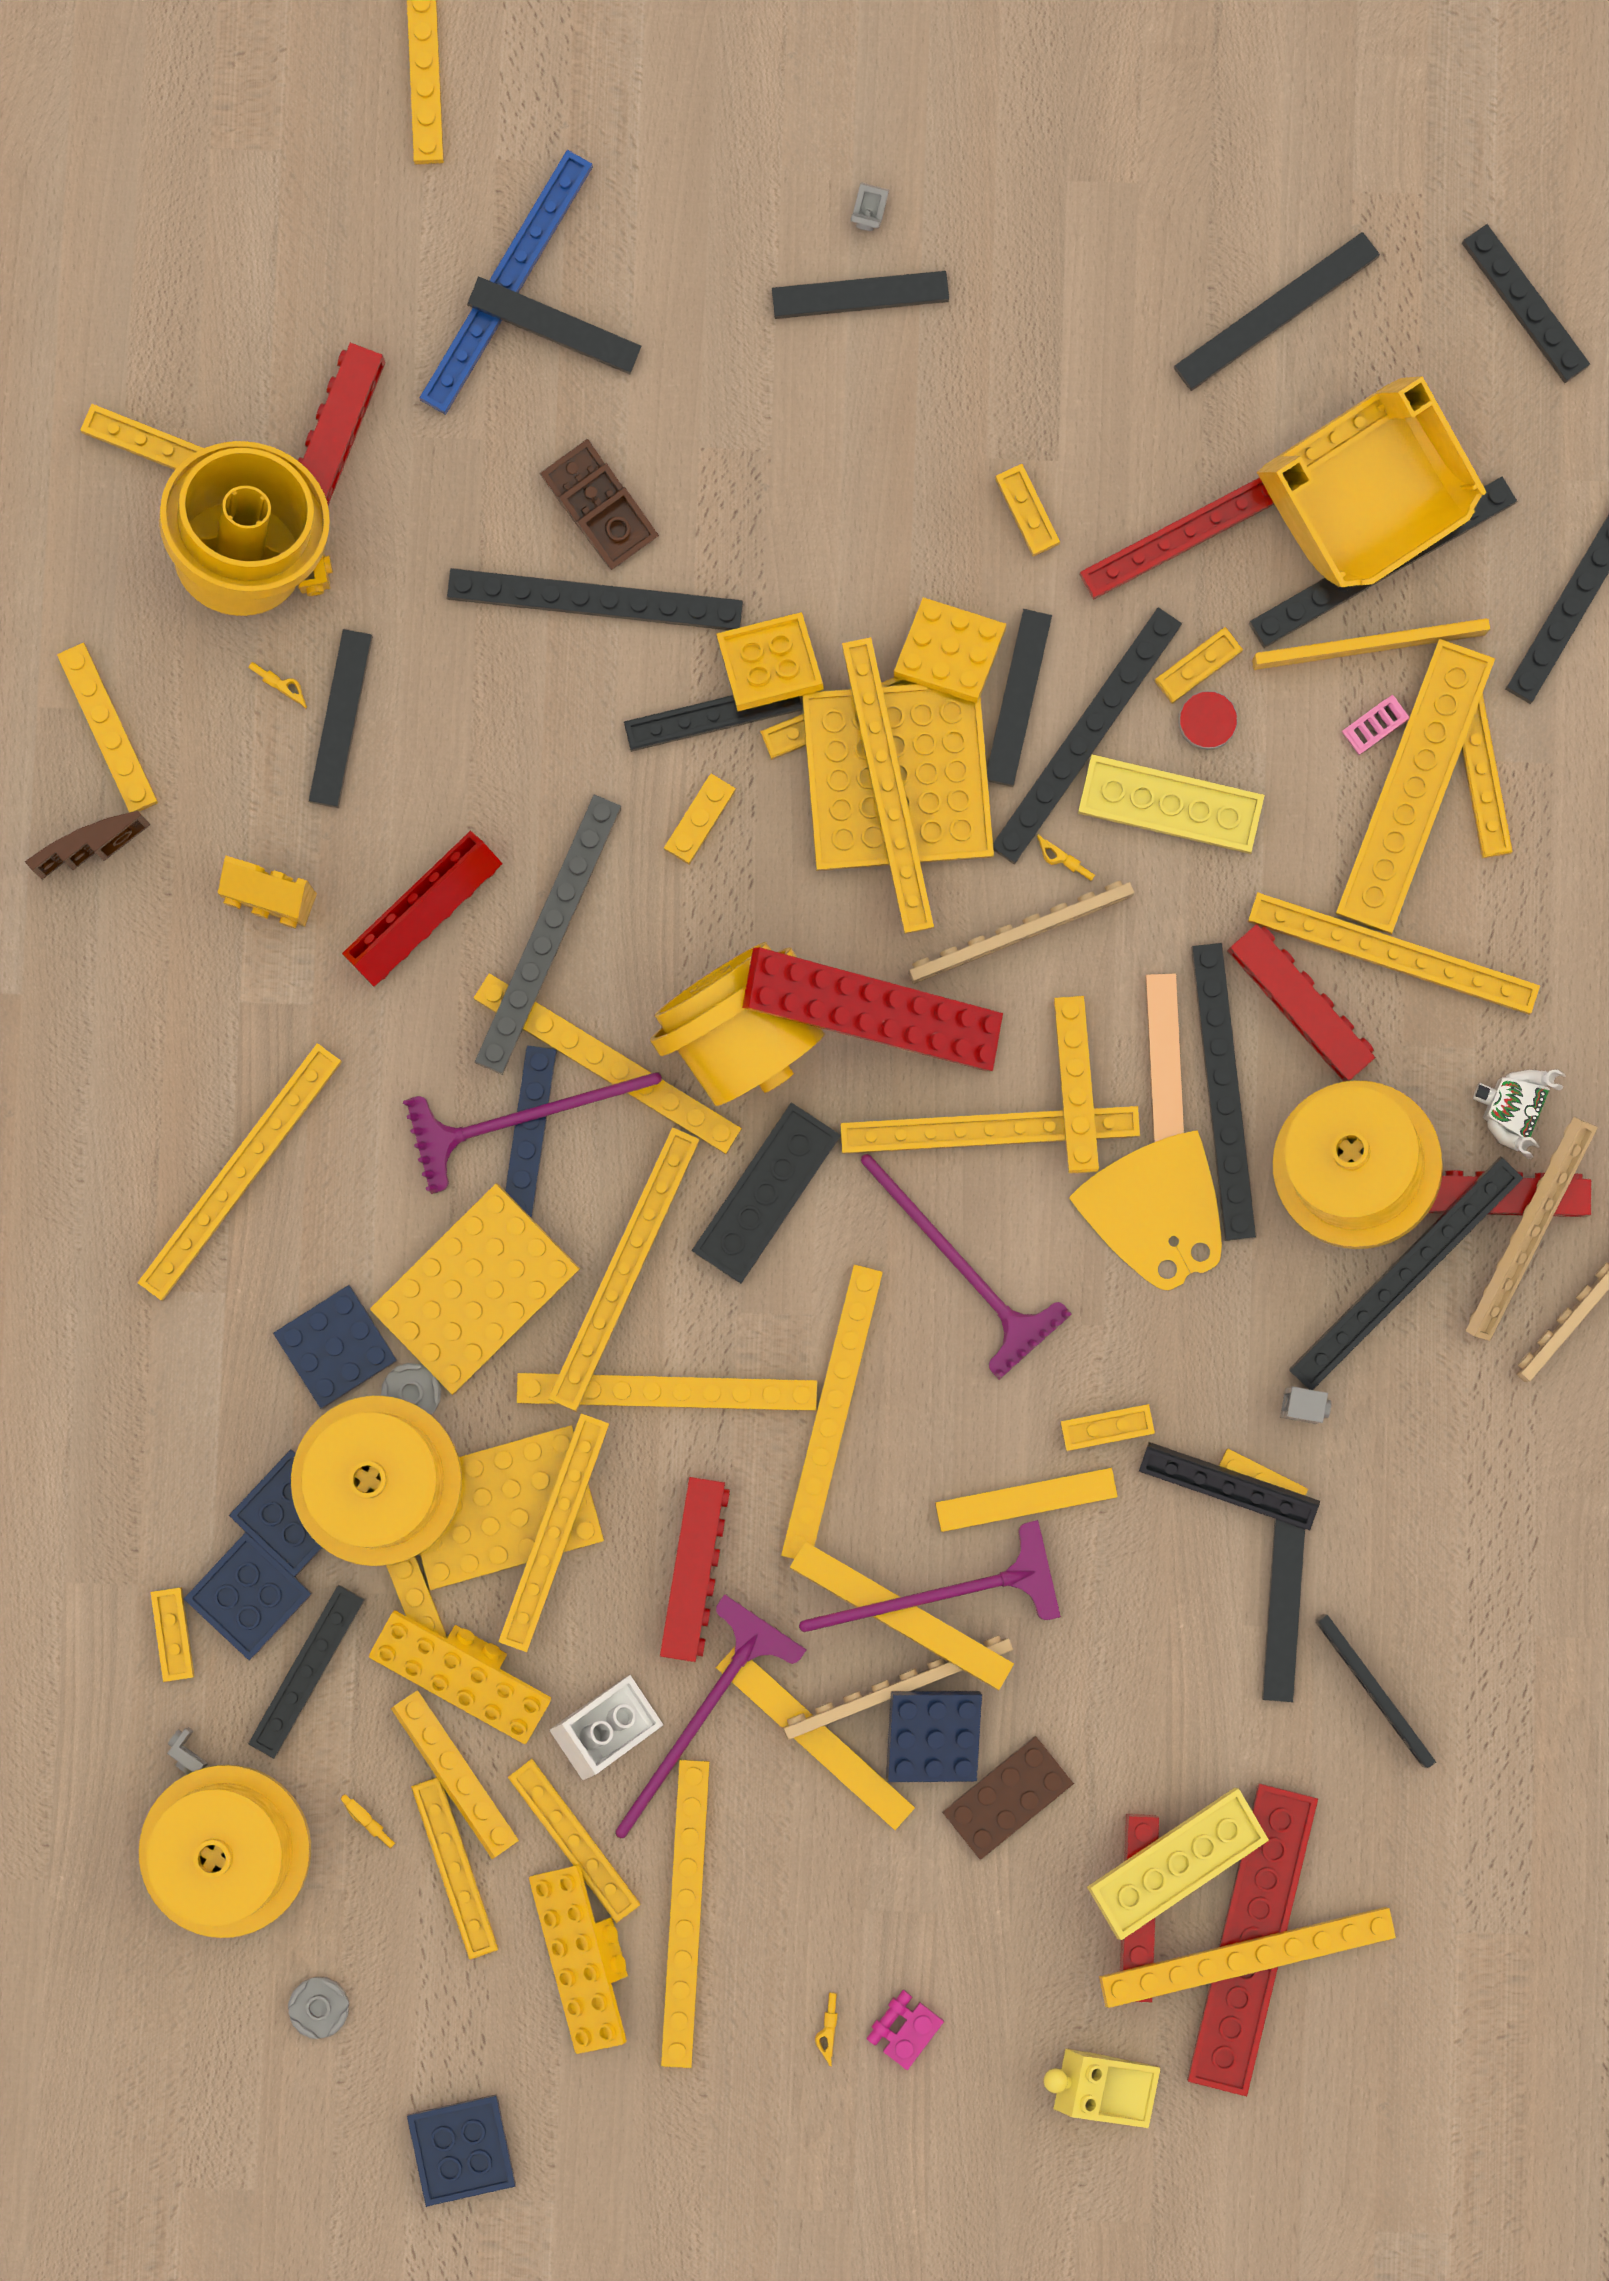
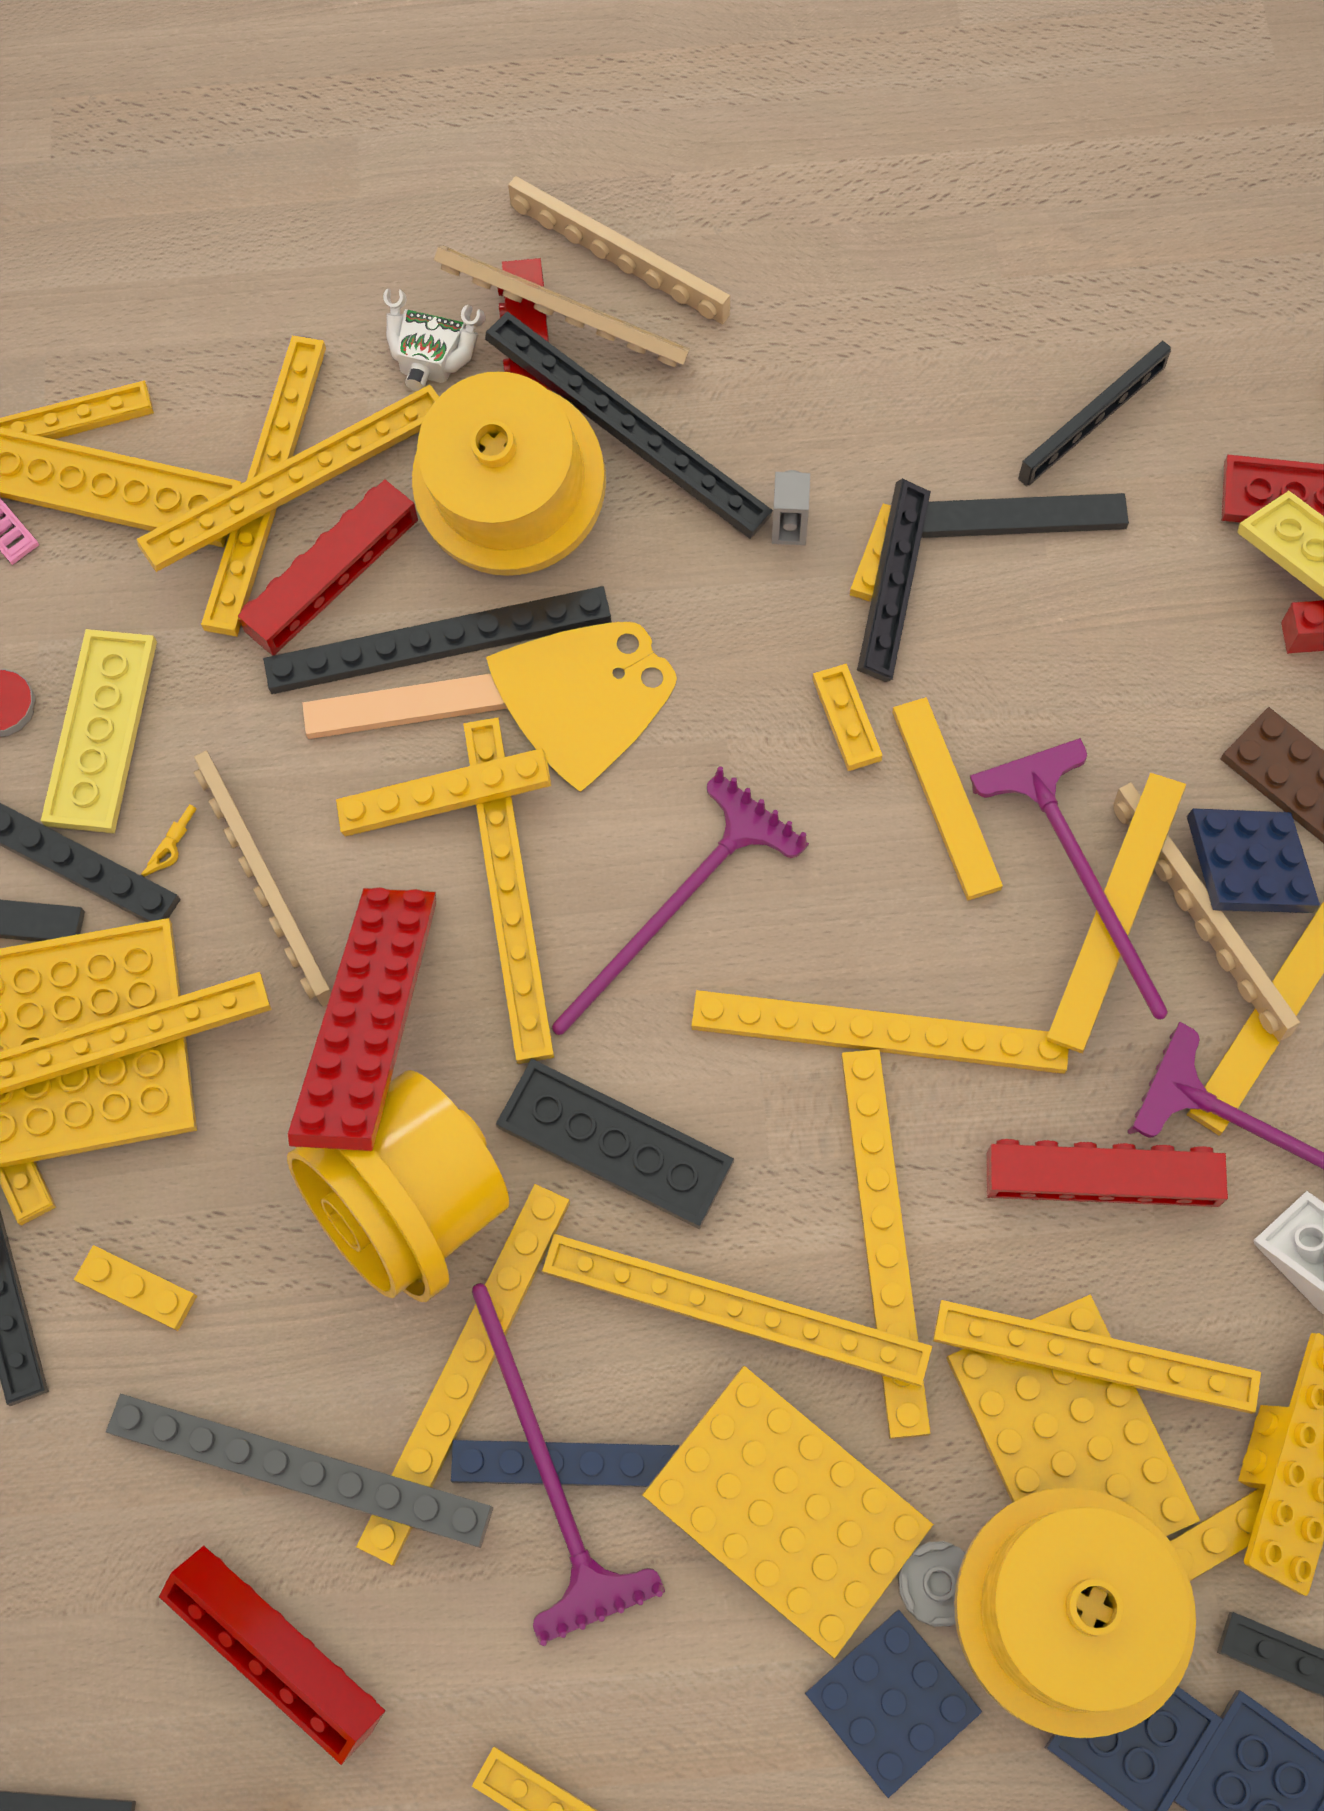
camera: 90 degrees left, 15 degrees down
(1388, 980) = (286, 480): none -> yellow plate

